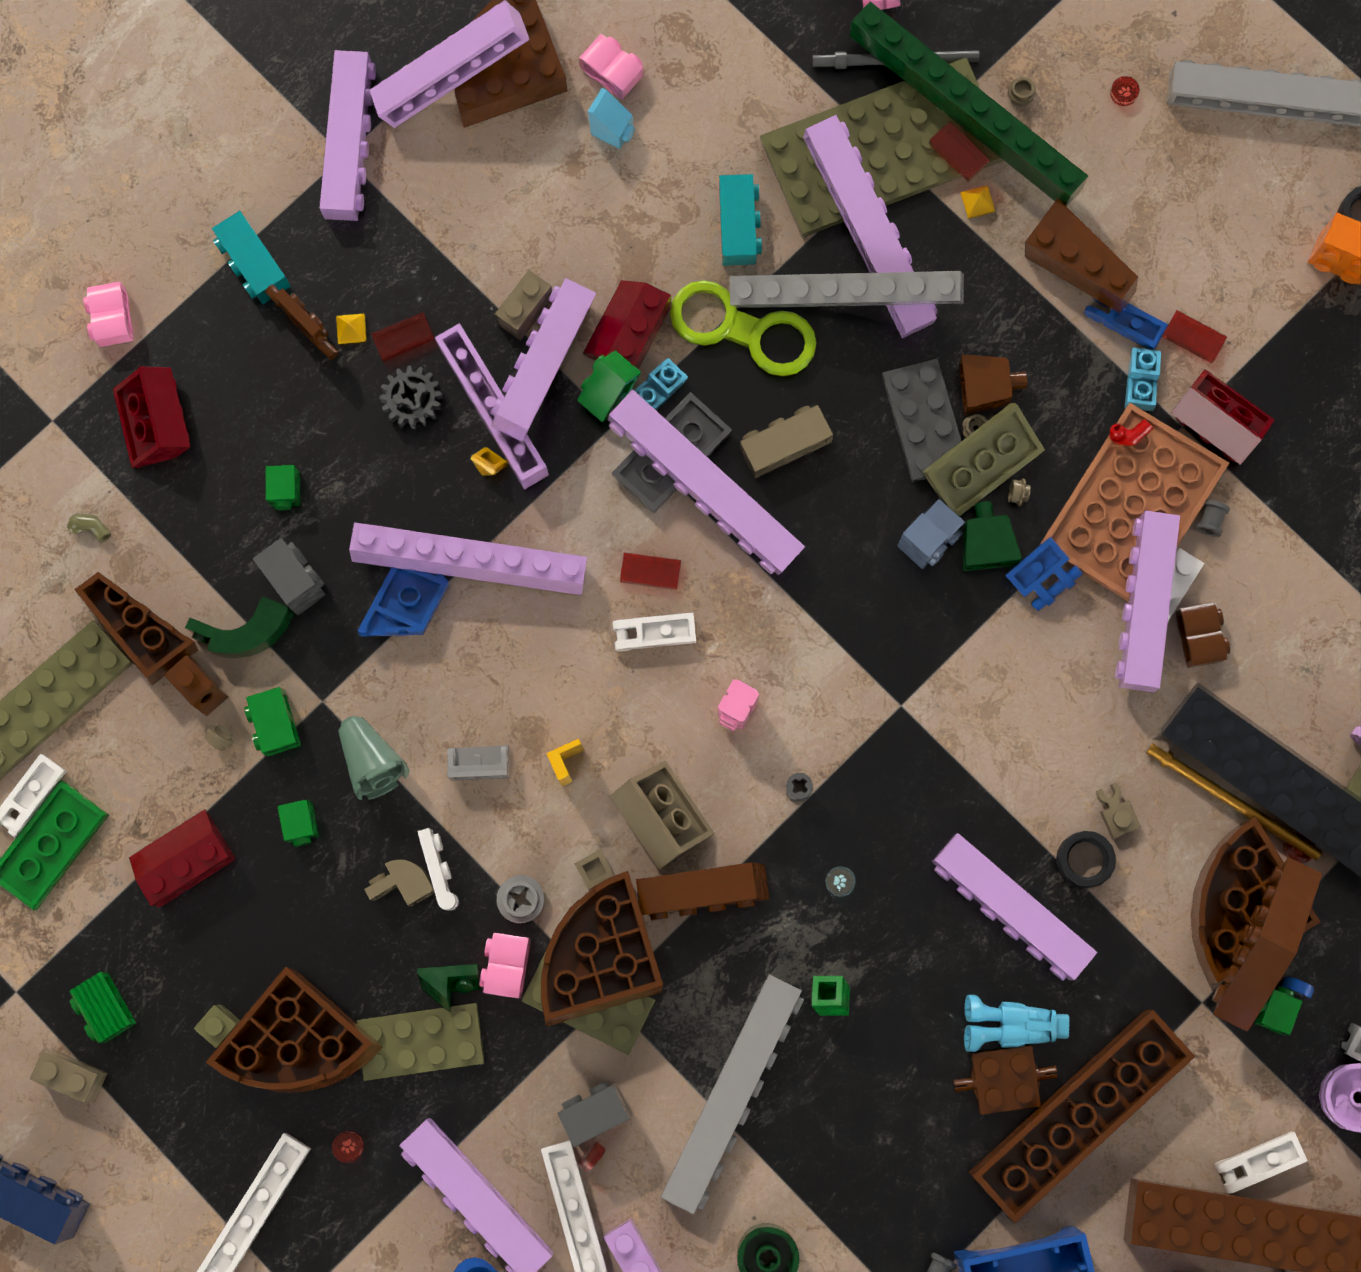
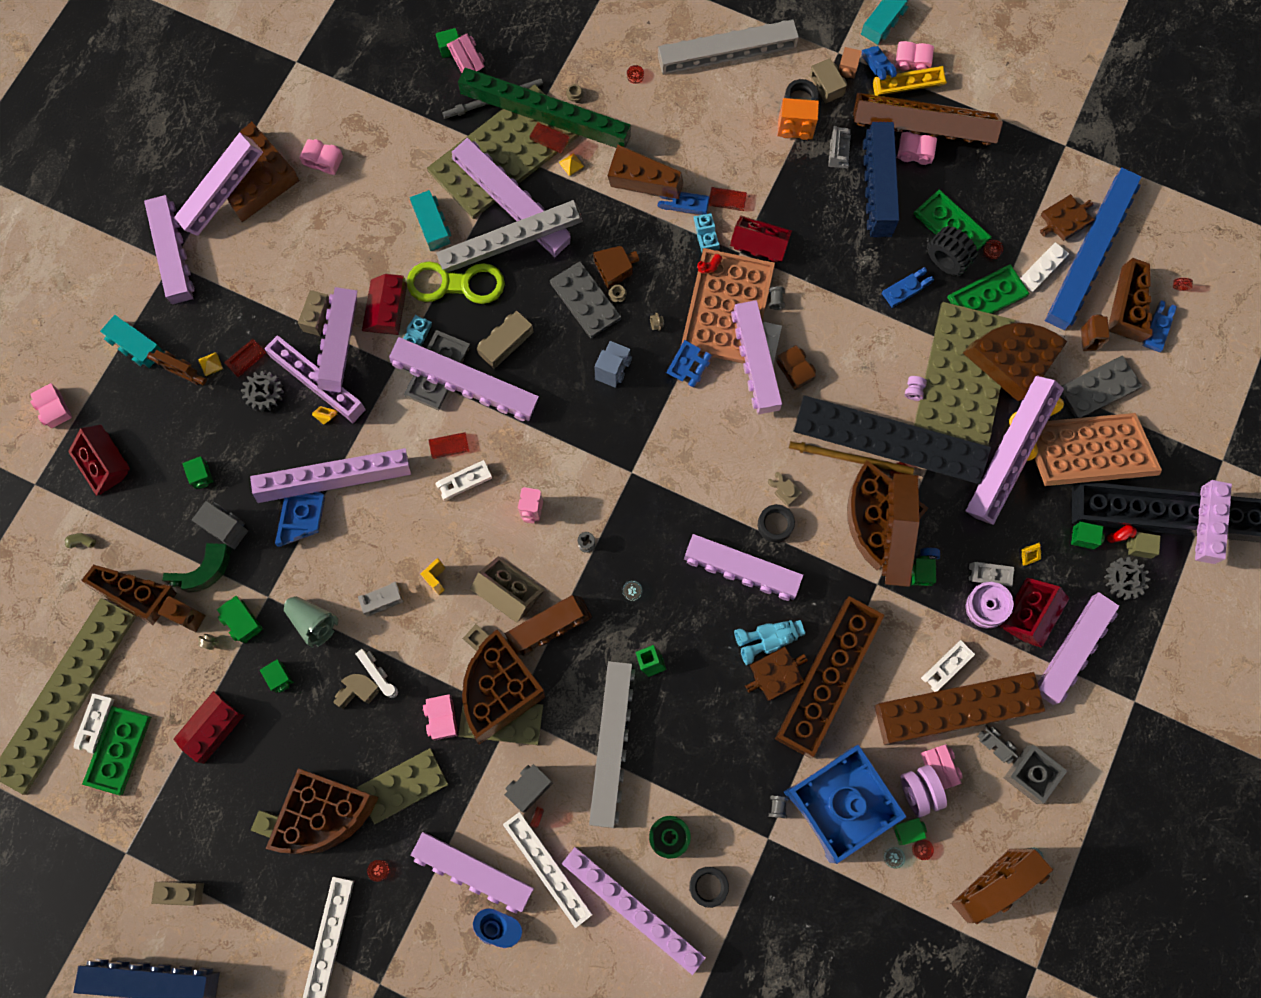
camera: 25 degrees left, 5 degrees down
(101, 1008) = (185, 841): green brick -> none
(441, 981) = (404, 741): dark green slope -> none
(517, 885) = (431, 665): light grey gear -> none
(608, 384) = (382, 341): green brick -> none
(610, 120) = (331, 187): medium azure slope -> none
(984, 460) = (628, 309): olive plate -> none
(989, 540) = (649, 356): dark green torso -> none

